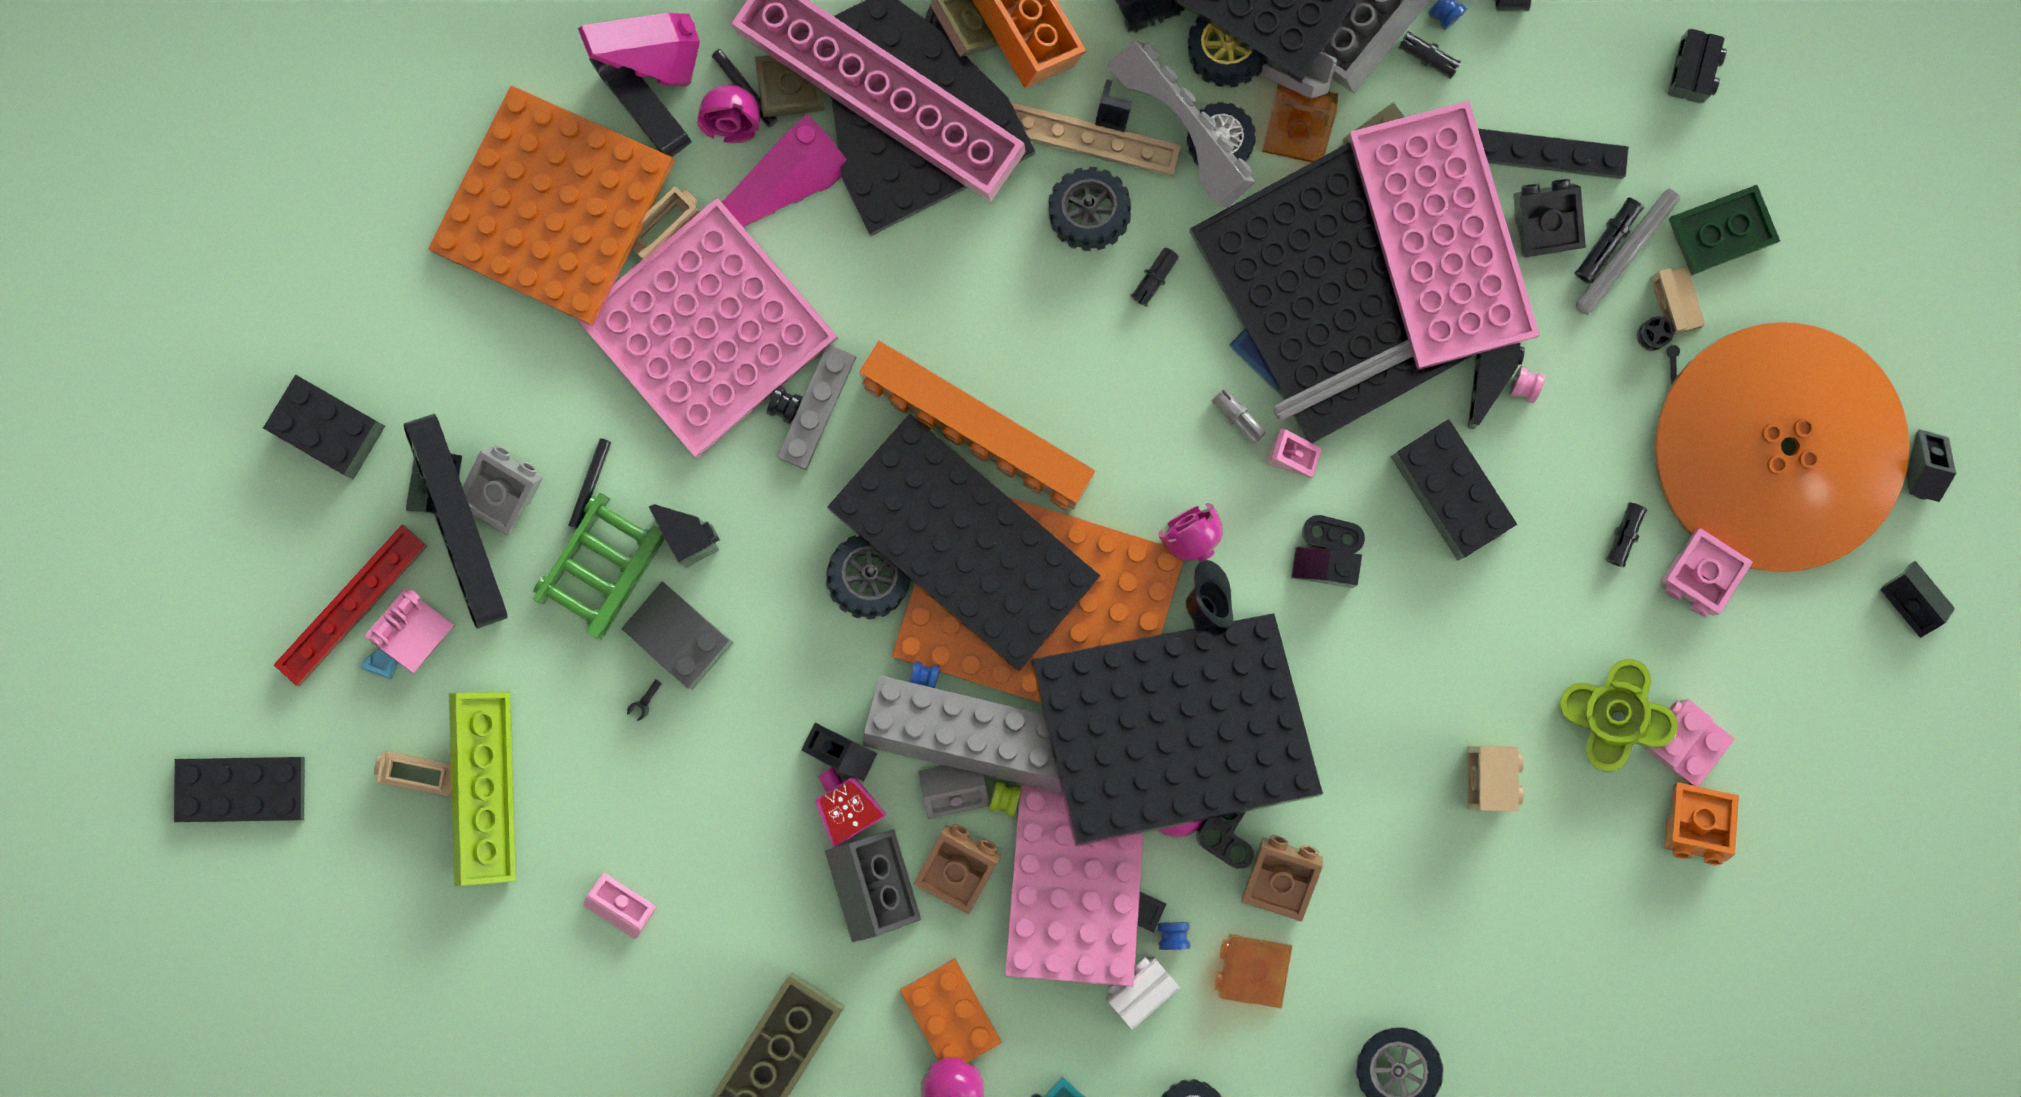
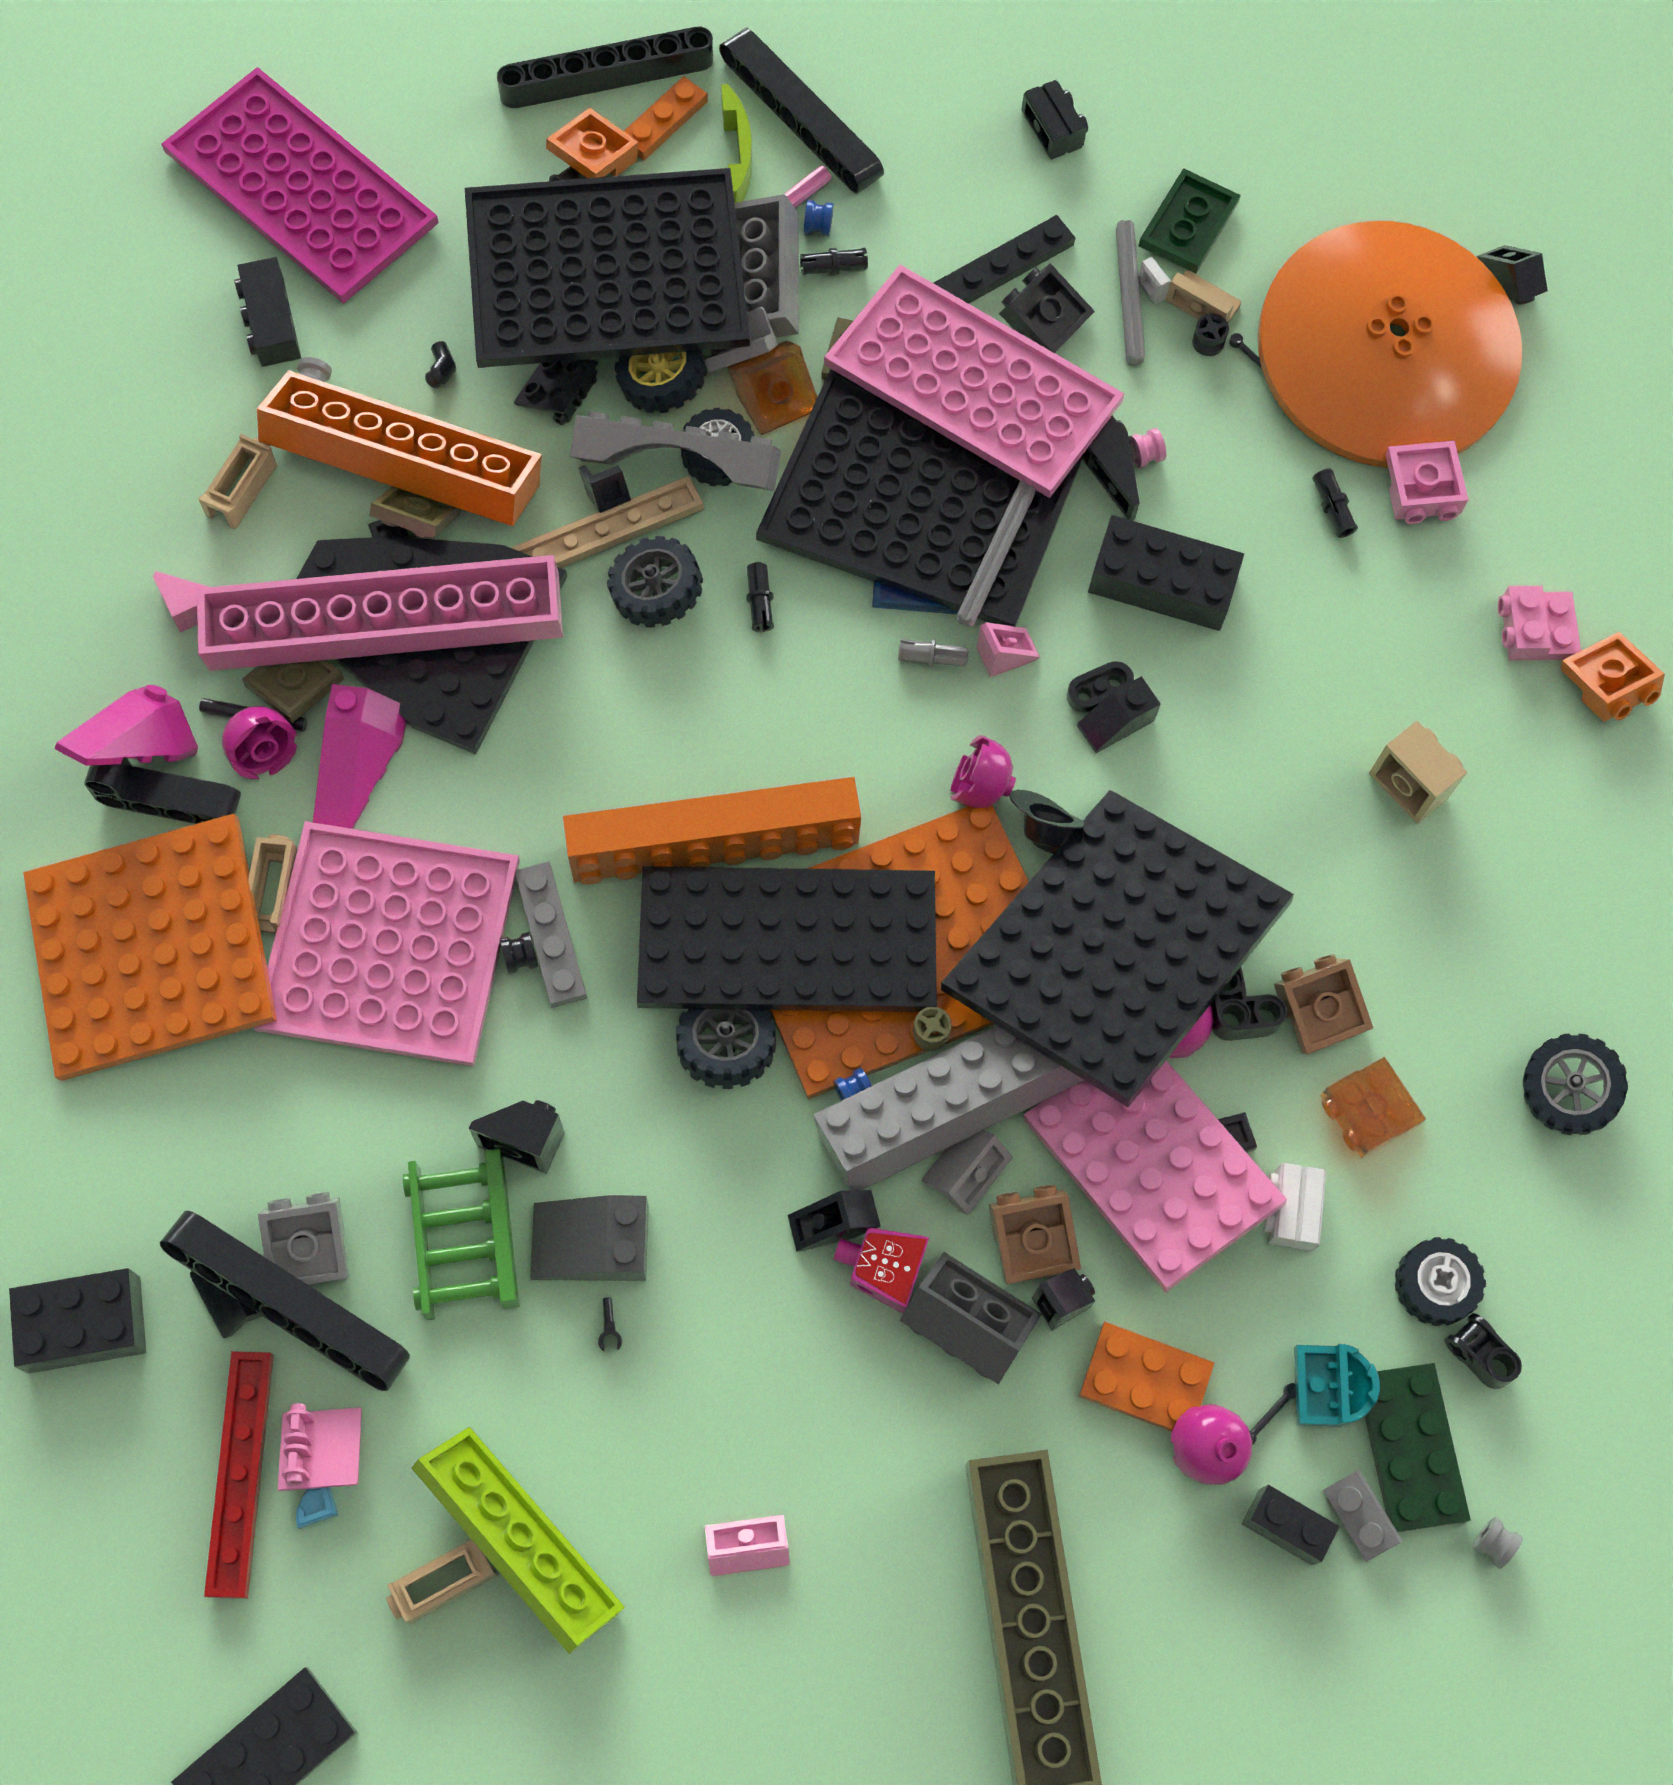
camera: 40 degrees left, 15 degrees down
(590, 482) = (389, 1169): black bar -> none
(941, 924) = (1063, 1297): none -> black slope
(1005, 676) = (934, 1021): none -> olive wheel
(1005, 798) = (1021, 1136): lime wheel -> none
(1174, 935) = (1277, 1133): blue wheel -> none
(1615, 226) = (1106, 282): black pin -> none
(1623, 692) = (1480, 663): lime plant -> none
(1651, 257) = (1153, 280): none -> white tile
(1918, 600) = (1603, 379): black panel -> none

